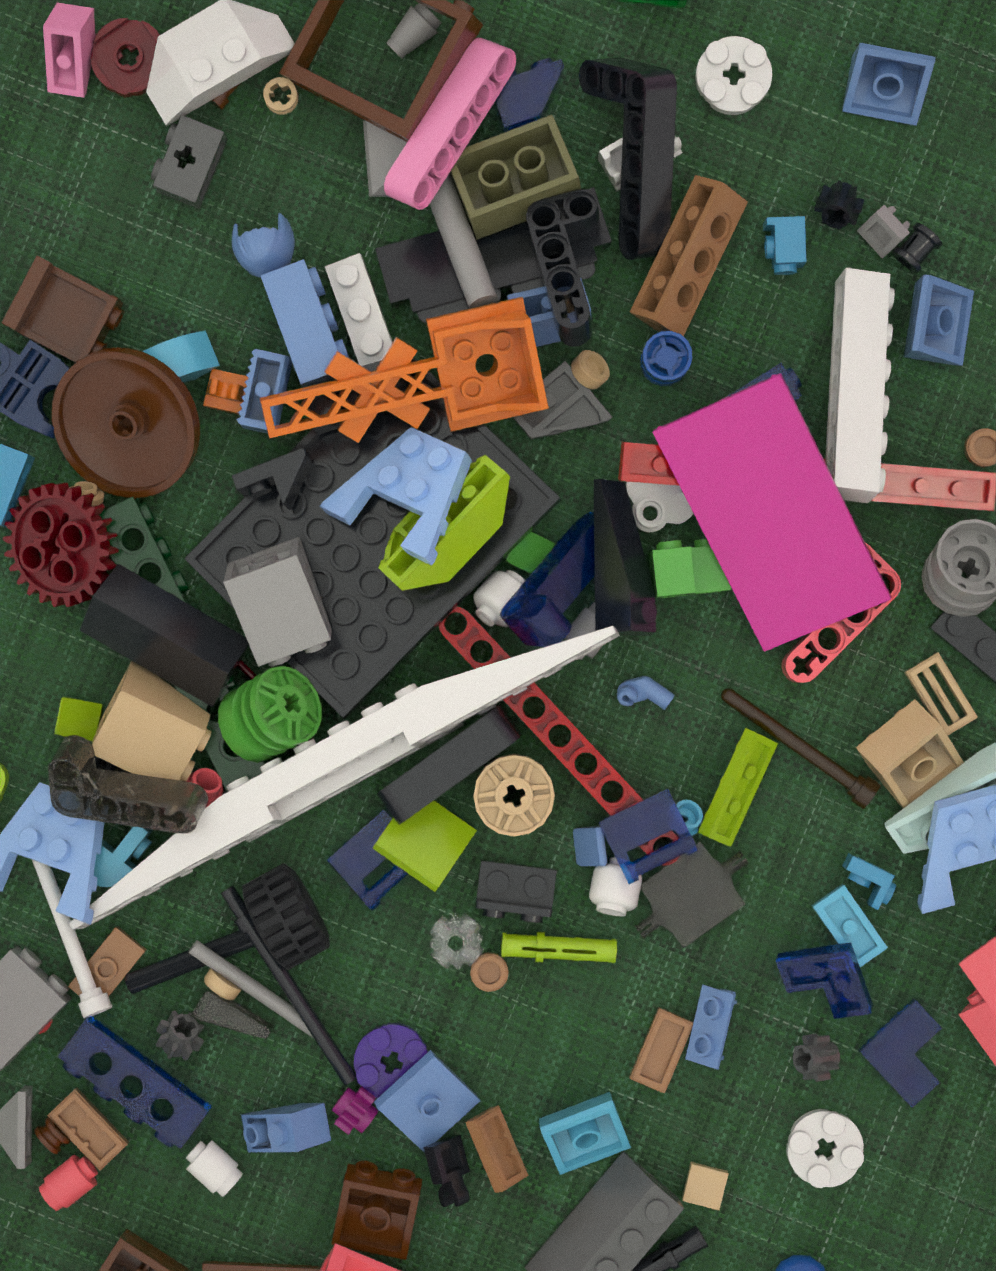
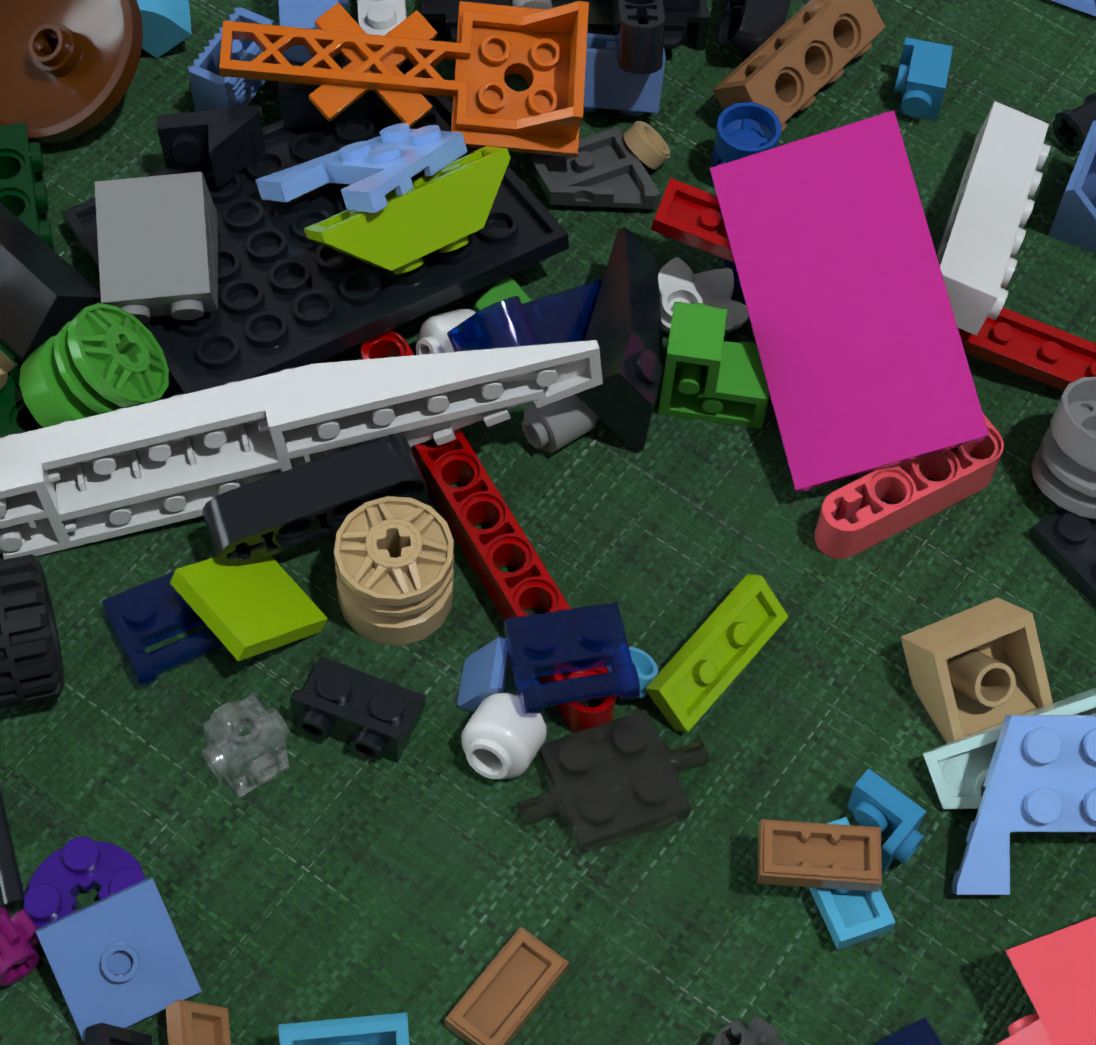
camera: 10 degrees right, 30 degrees down
(225, 391) = (174, 73): orange tile -> none
(489, 972) = (280, 813): medium nougat tile -> none
(561, 948) = (410, 806): lime pin -> none
(641, 689) = (615, 506): medium blue arm -> none
(710, 1026) = (598, 960): medium blue hinge -> none
(828, 968) = (807, 928): clear blue plate -> none
(833, 923) = (819, 855): none -> medium nougat plate
(839, 205) = (1009, 58): black gear -> none
(859, 788) = (897, 702): dark brown piece -> none
(884, 230) = (1046, 93): light grey tile -> none
(923, 667) = (997, 584): tan tile -> none

